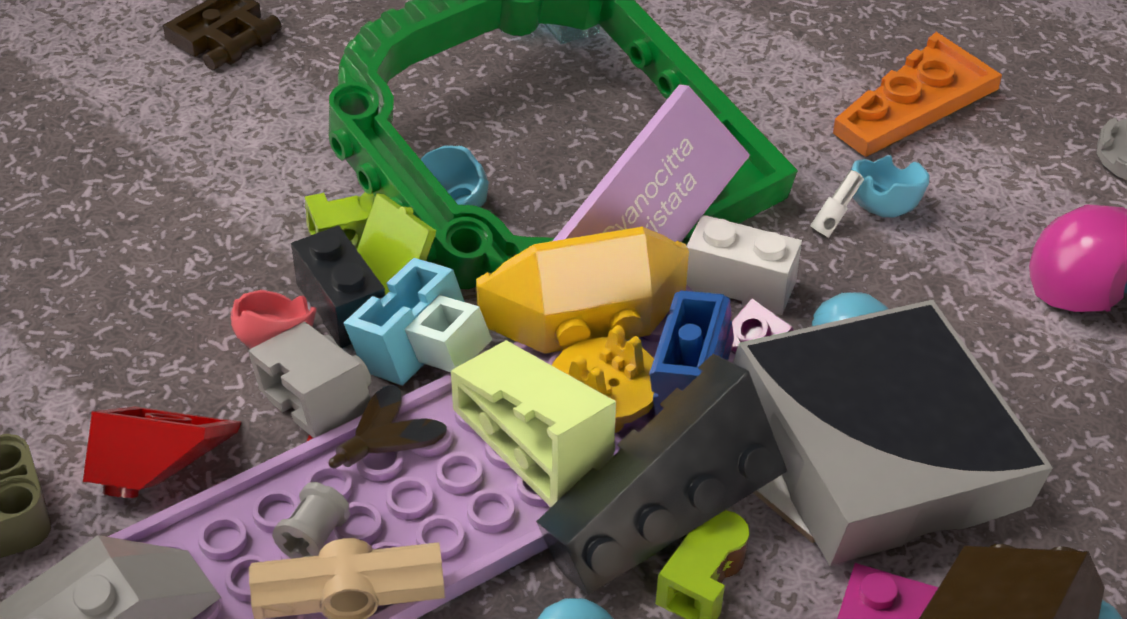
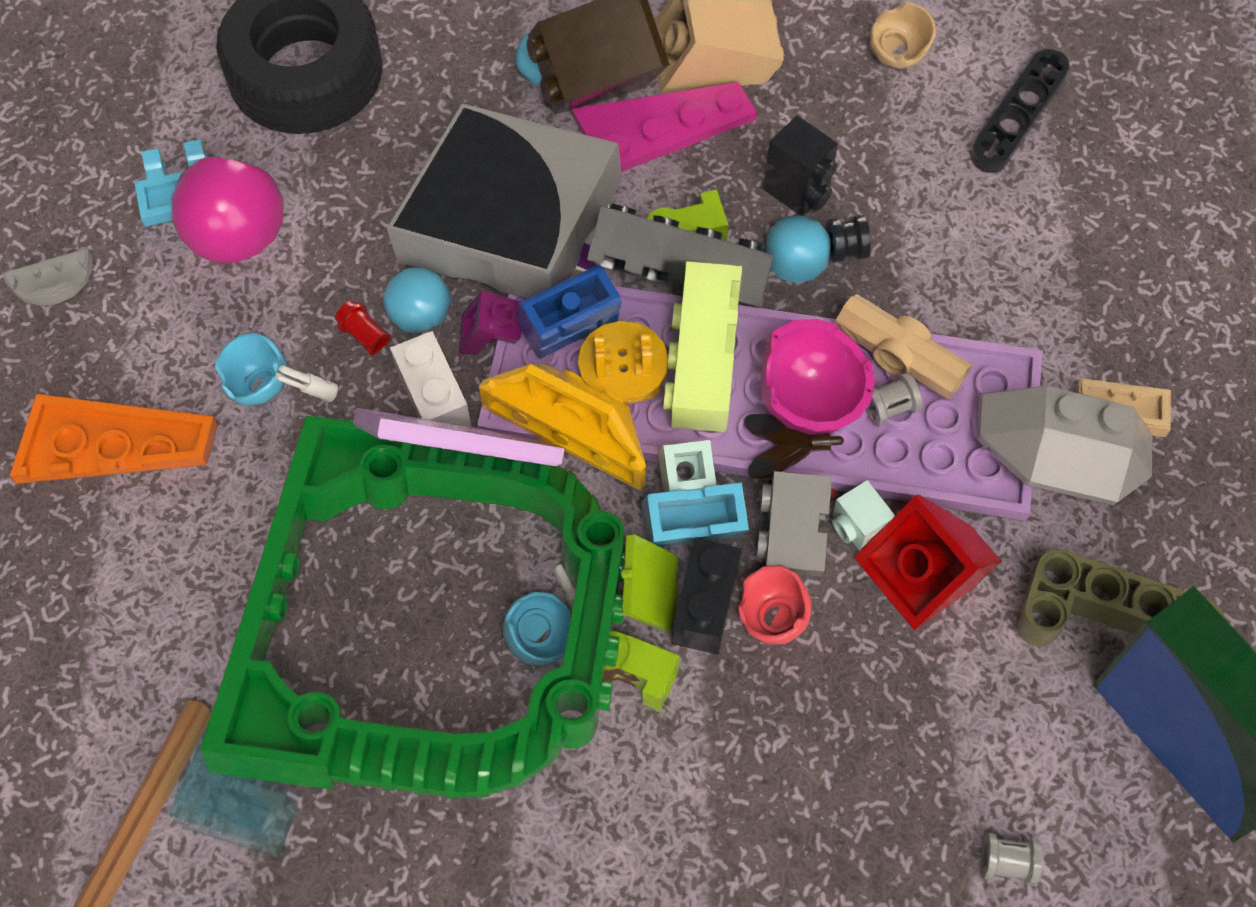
camera: 135 degrees left, 20 degrees up
(254, 432) = (860, 515): none -> light aqua plate
(395, 452) = (815, 377): none -> dark pink cylinder
(863, 277) = (355, 321): none -> red pin

